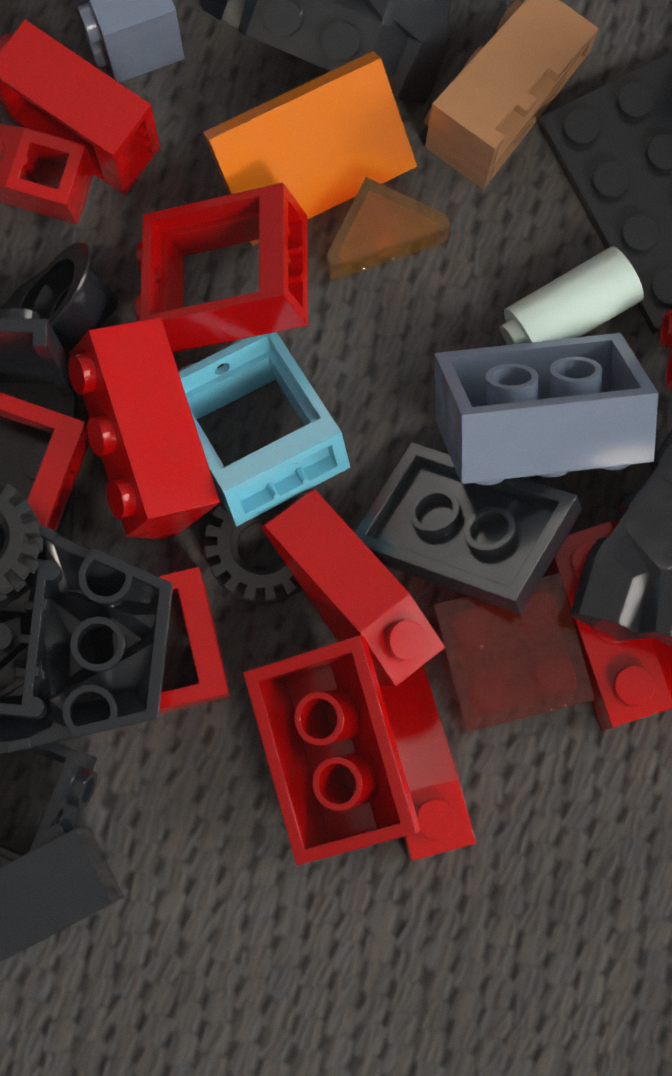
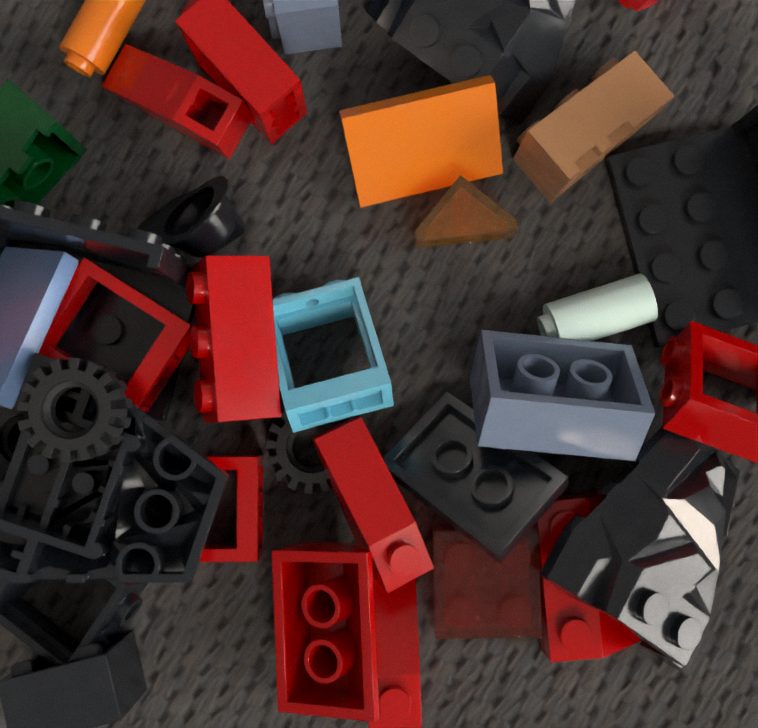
camera: 15 degrees right, 5 degrees up
(224, 221) = (376, 234): red window -> none

